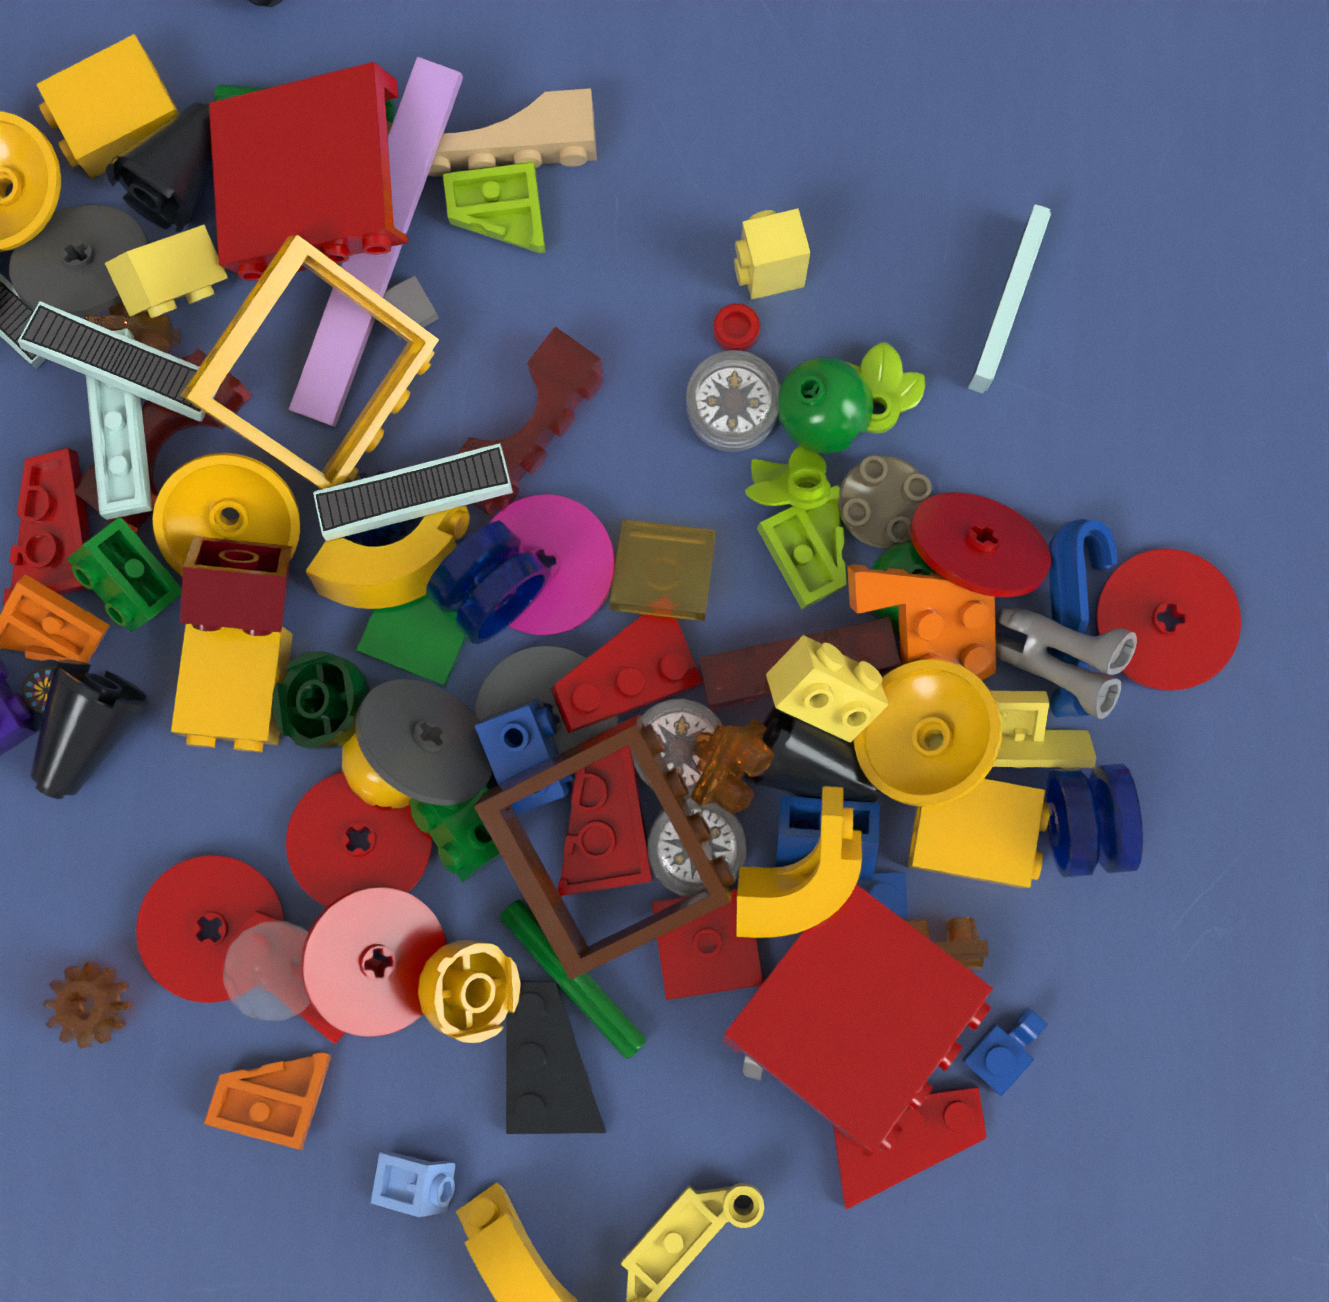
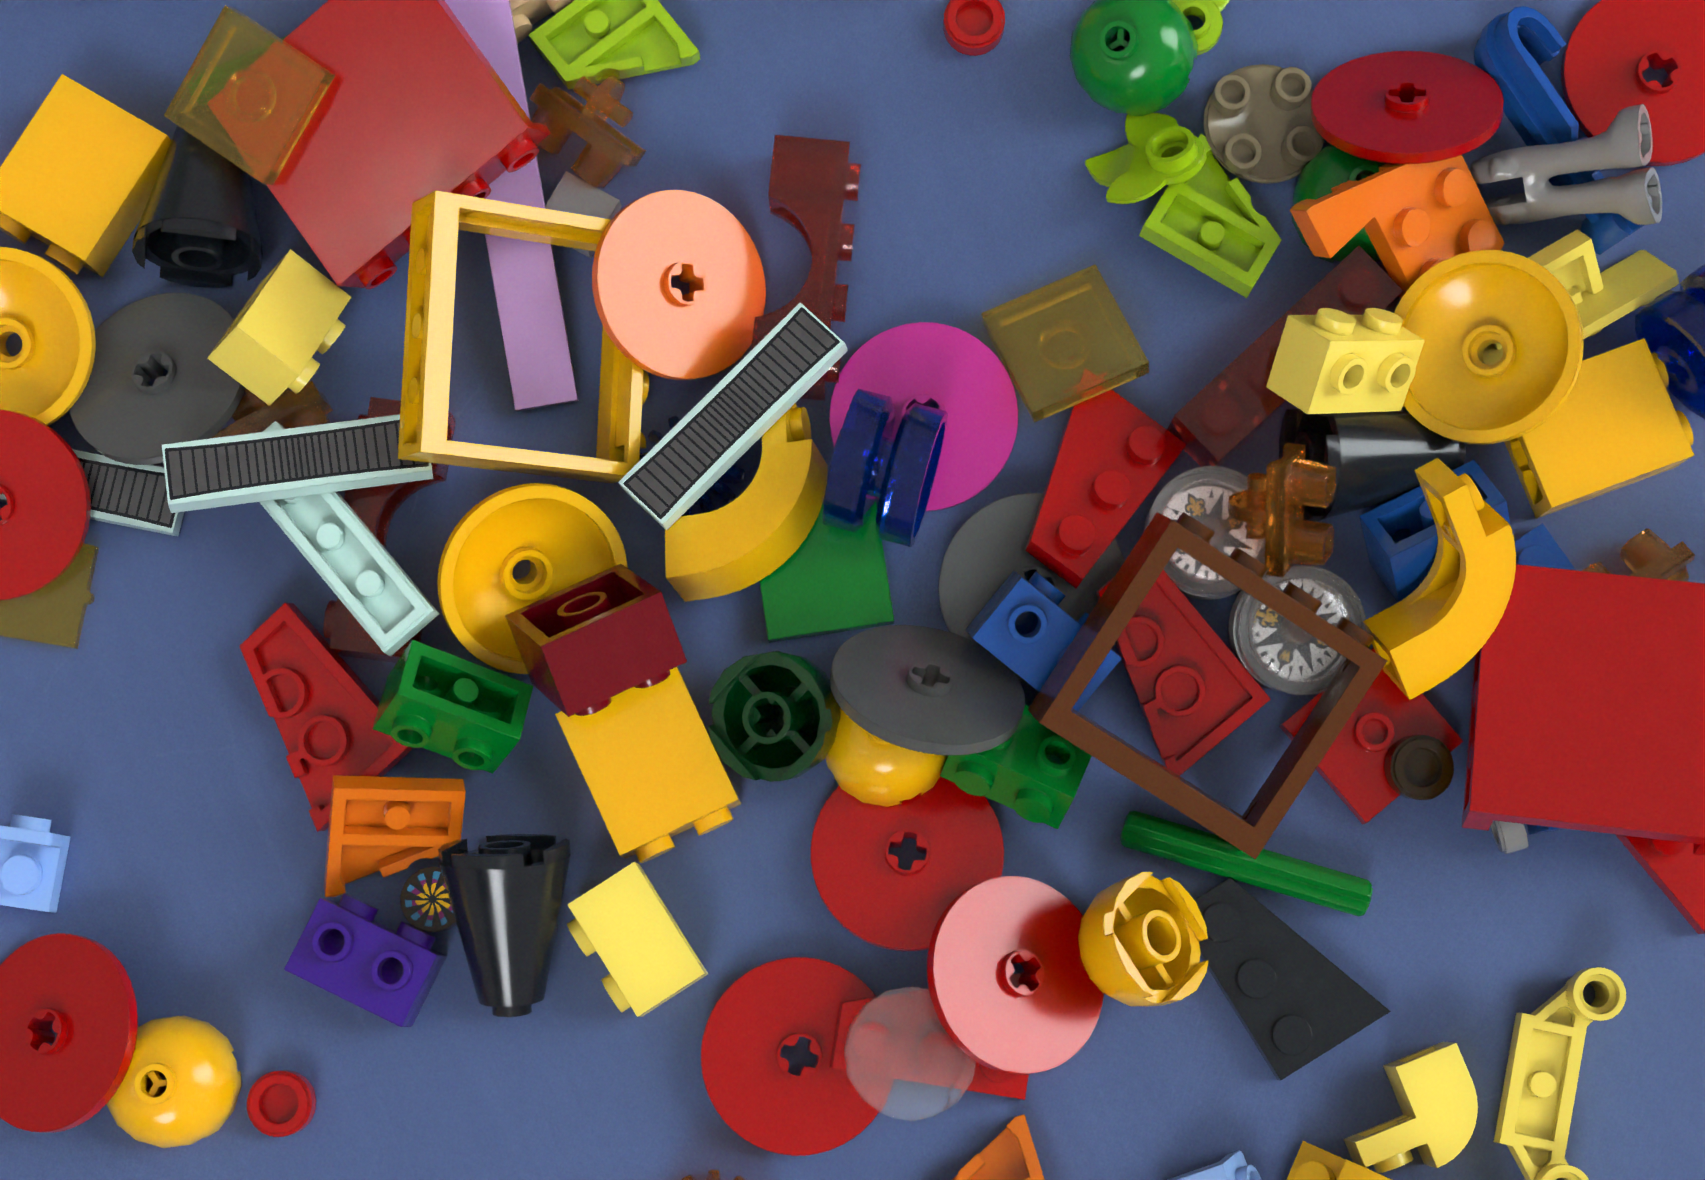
camera: 35 degrees left, 0 degrees up
(150, 792) = (635, 941): none -> light yellow brick
(232, 110) = (249, 95): none -> clear yellow tile
(431, 351) = (655, 323): none -> piece
(450, 250) = (606, 146): none -> clear orange hips
(592, 1218) = (1436, 1109): none -> light yellow brick
(721, 984) = (1419, 767): none -> dark brown tile
(733, 400) = (1026, 105): clear piece -> none

